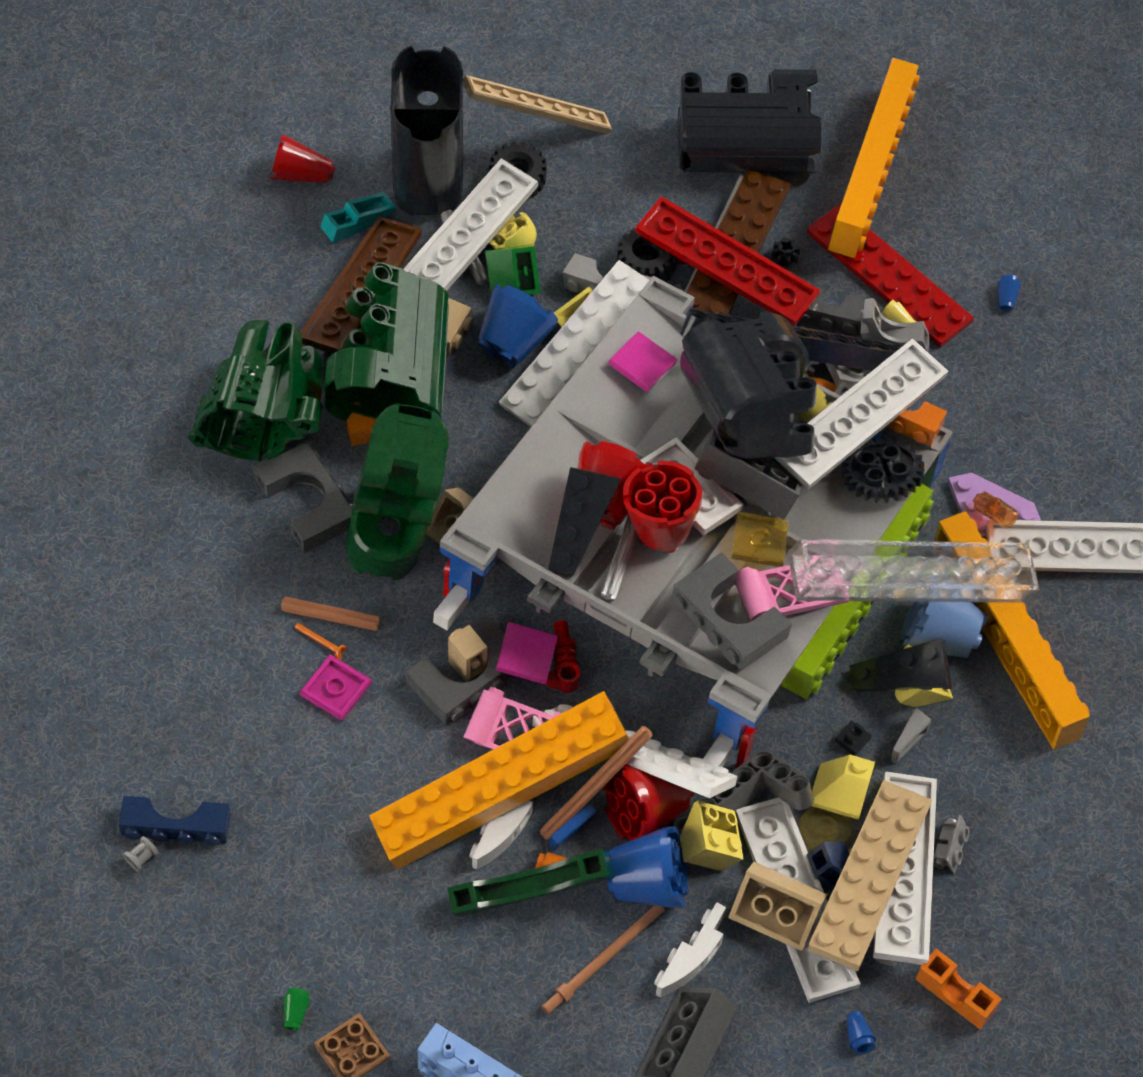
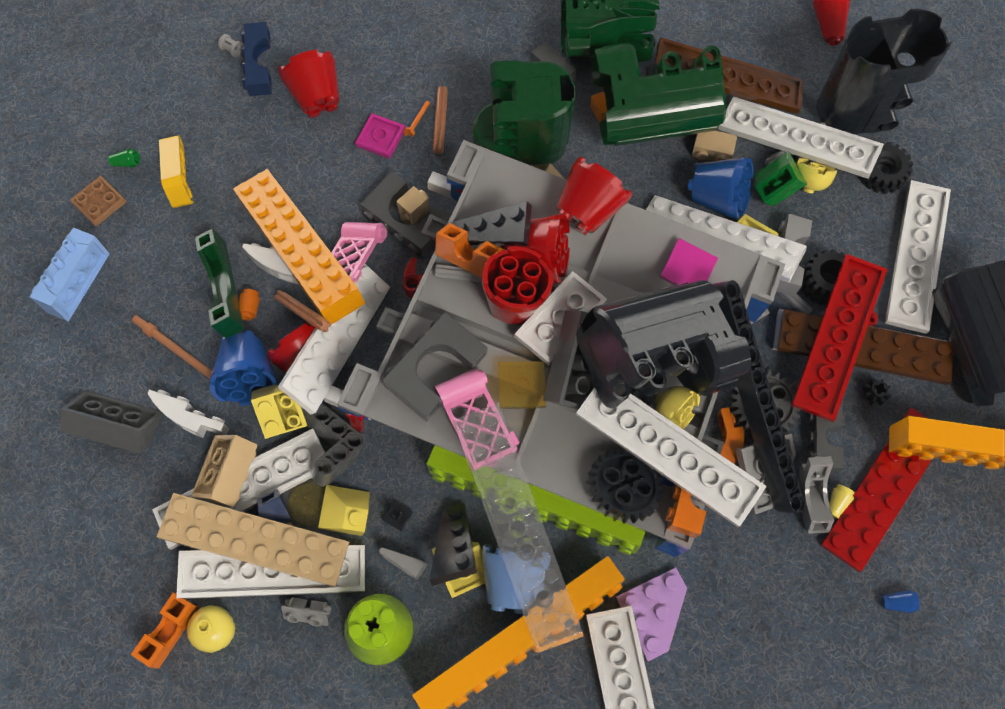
camera: 85 degrees right, 10 degrees up
(247, 745) = (312, 81): none -> red cone
(332, 936) = (174, 172): none -> yellow beam
(356, 216) = (799, 66): teal slope -> none
(526, 653) = (414, 249): dark pink tile -> none
(536, 104) = (943, 151): tan tile -> none
(555, 421) = (591, 196): none -> red cone
(571, 827) = (283, 310): blue tile -> none
(616, 540) = (454, 247): none -> orange arch
(631, 170) = (918, 257): none -> white plate
(860, 1035) = (127, 554): blue cone -> none
(962, 945) = (210, 628): none -> light yellow cylinder
(980, 769) = (387, 641): none -> lime cone
(995, 509) = (639, 608): clear orange piece -> none

